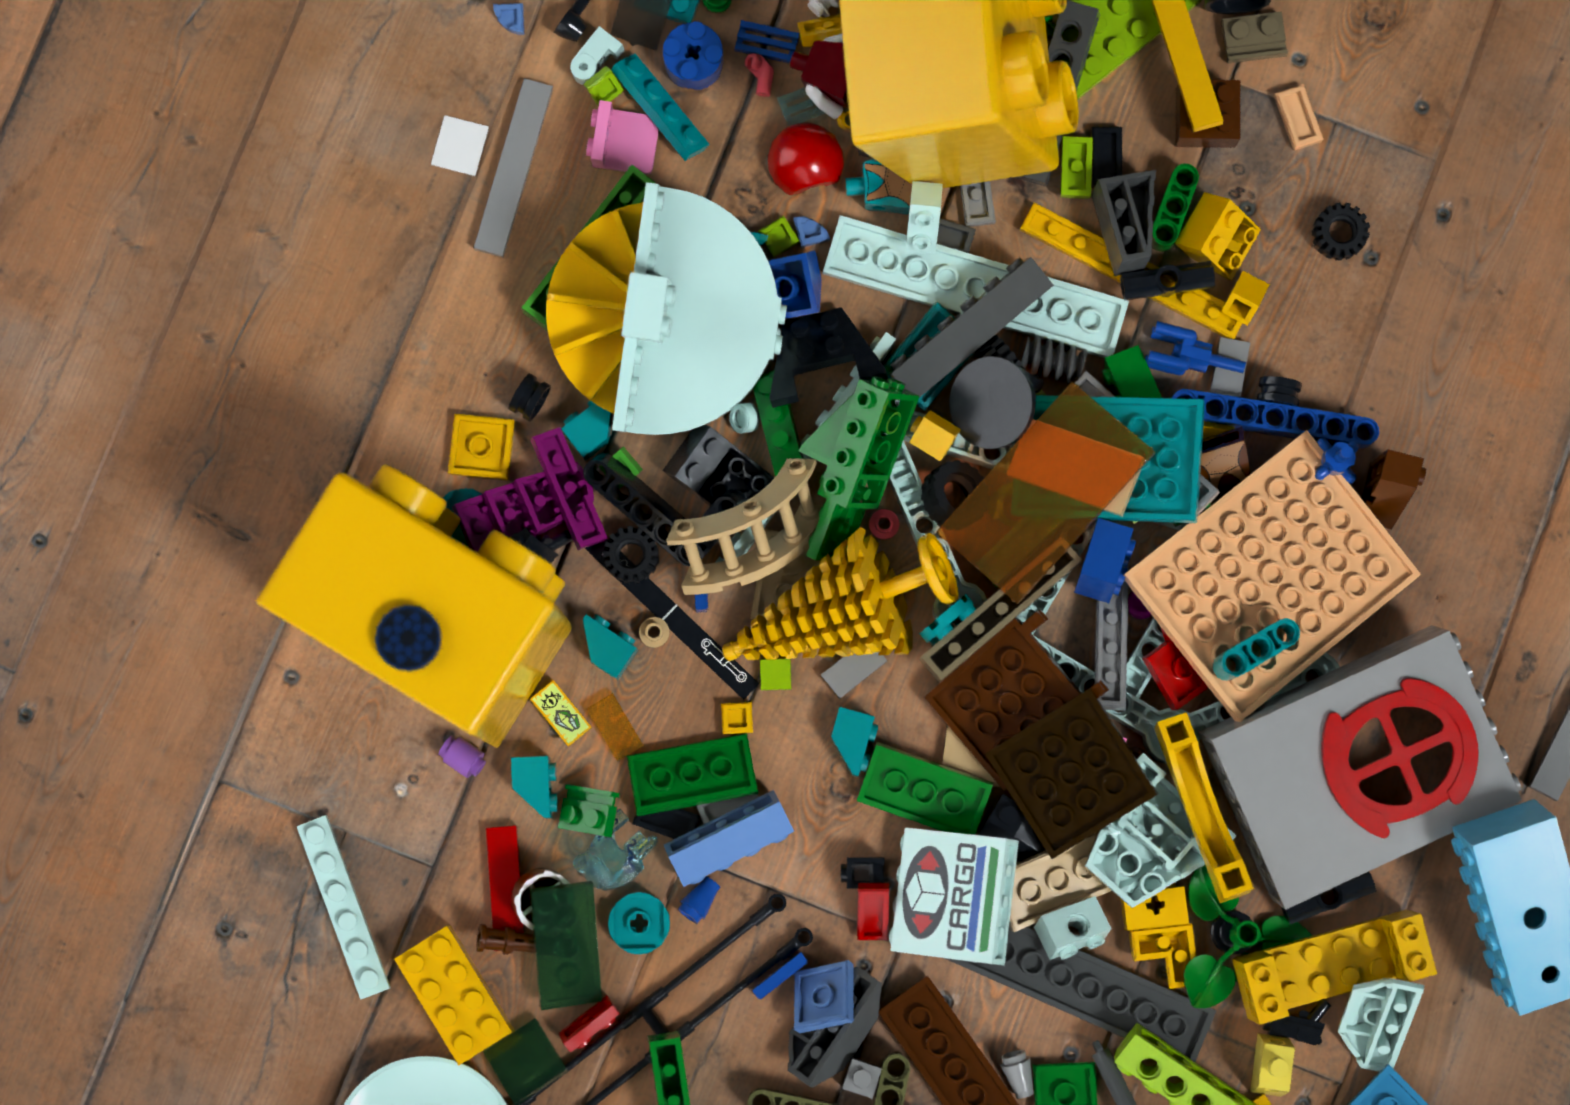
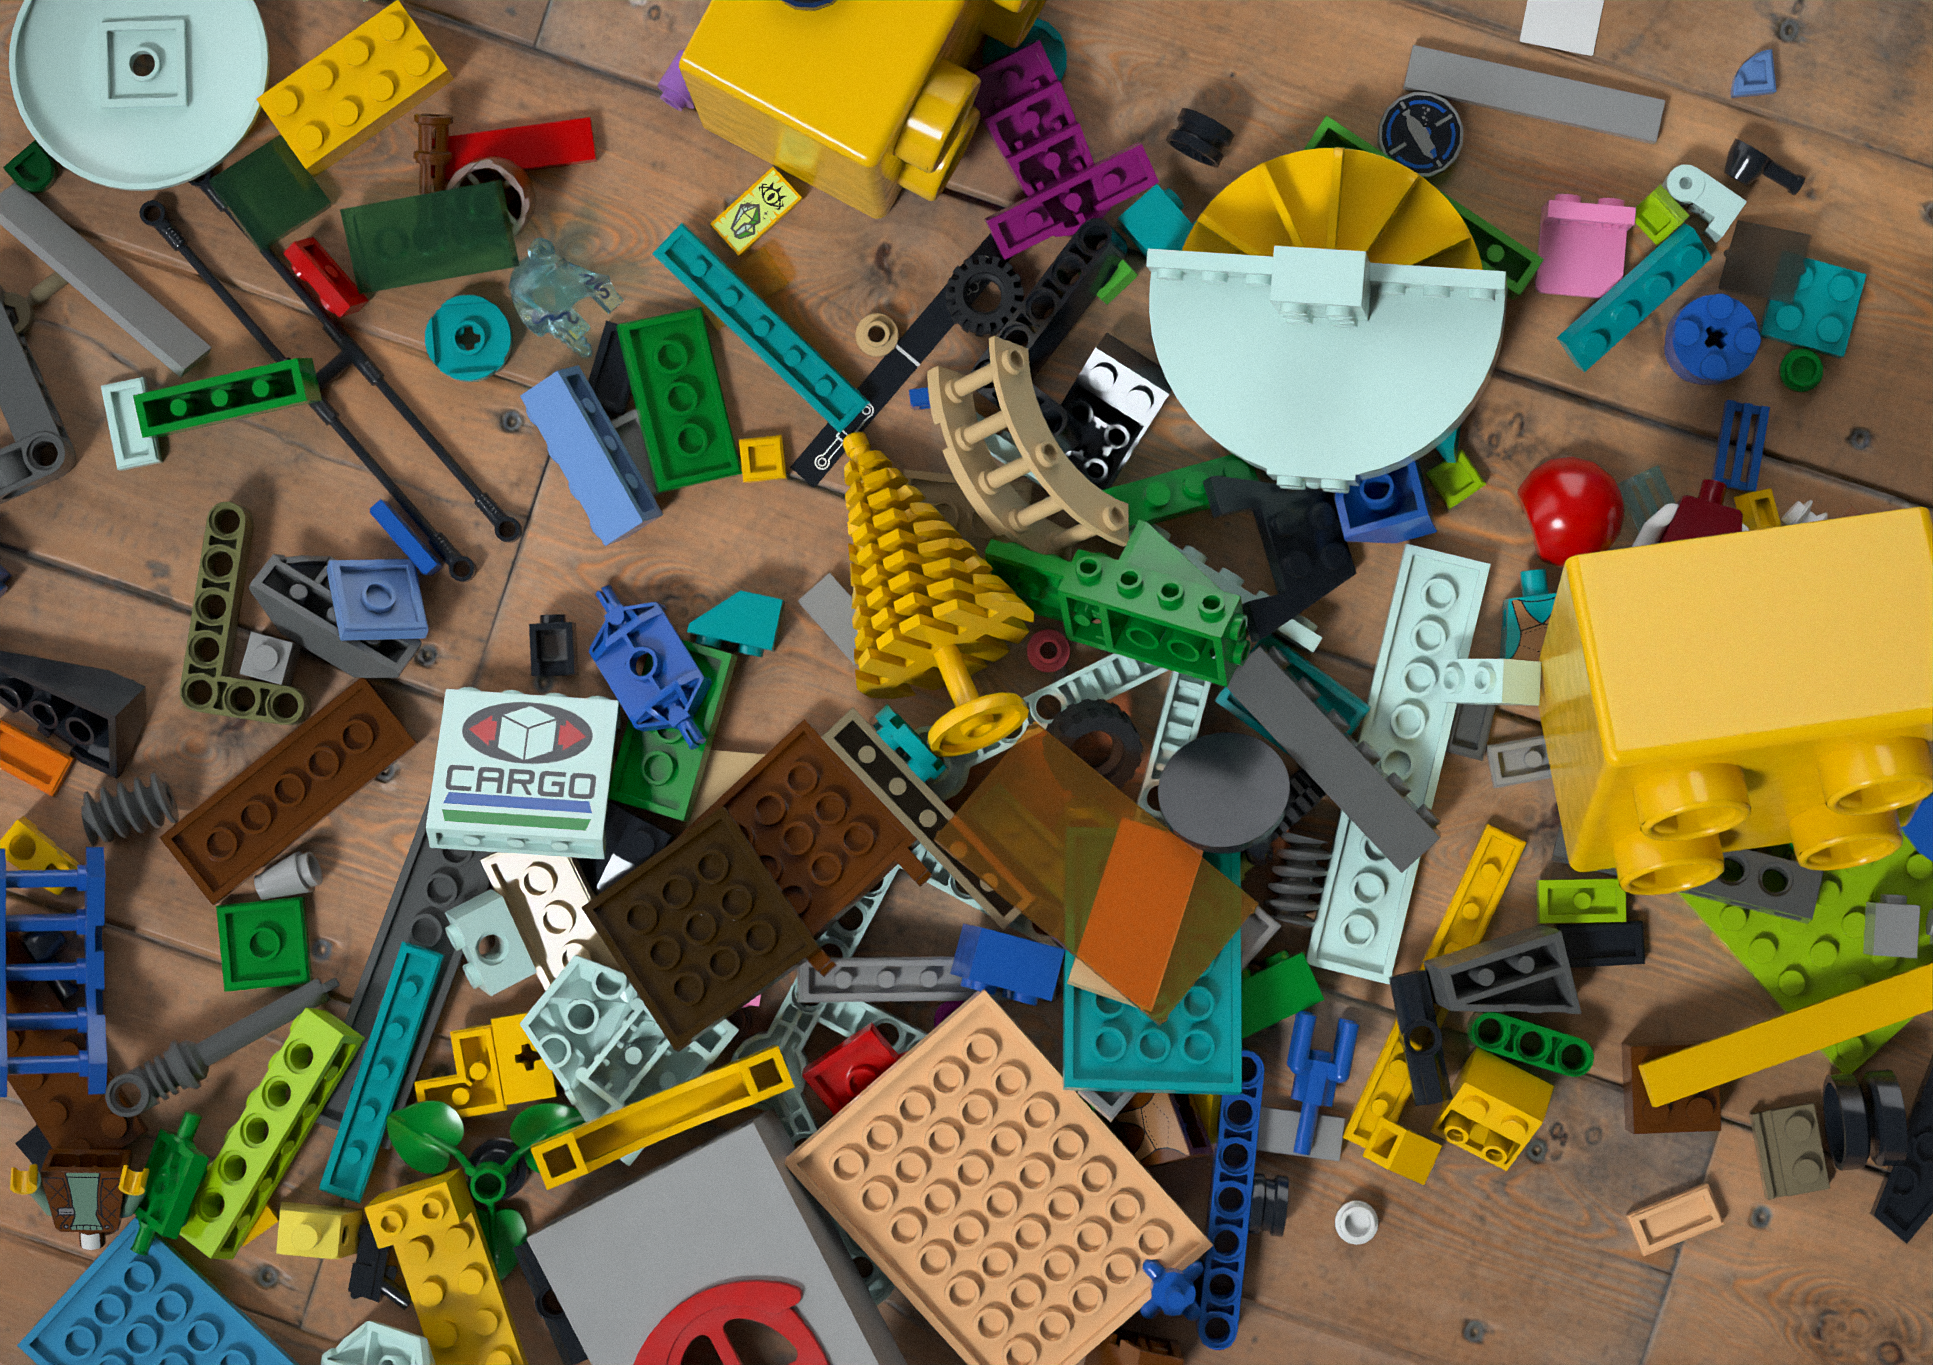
camera: 90 degrees right, 5 degrees up
(481, 447) = (1127, 75): yellow tile -> none
(533, 783) = (653, 179): teal slope -> none
(535, 246) = (1421, 133): none -> black tile
(544, 548) = (982, 162): black piece -> none
(588, 811) = (618, 257): green plate -> none
(606, 649) = (849, 268): teal slope -> none
(644, 713) = (760, 328): none -> teal tile
(699, 900) = (504, 420): blue cone -> none
(744, 418) = (1189, 445): light aqua tile -> none
(762, 71) = (1695, 442): coral arm -> none
(775, 674) = (826, 509): lime tile -> none
(810, 232) = (1465, 523): medium blue tile -> none
(873, 911) = (500, 662): red tile -> none
(896, 785) = (674, 685): none -> blue plate
(933, 435) = (1174, 711): yellow brick -> none
(1161, 1011) = (381, 1072): none -> teal tile
(1268, 643) = (890, 1202): teal beam -> none
(1293, 333) = (1356, 1222): none -> white plate
(1350, 216) = (1509, 1312): black tyre -> none

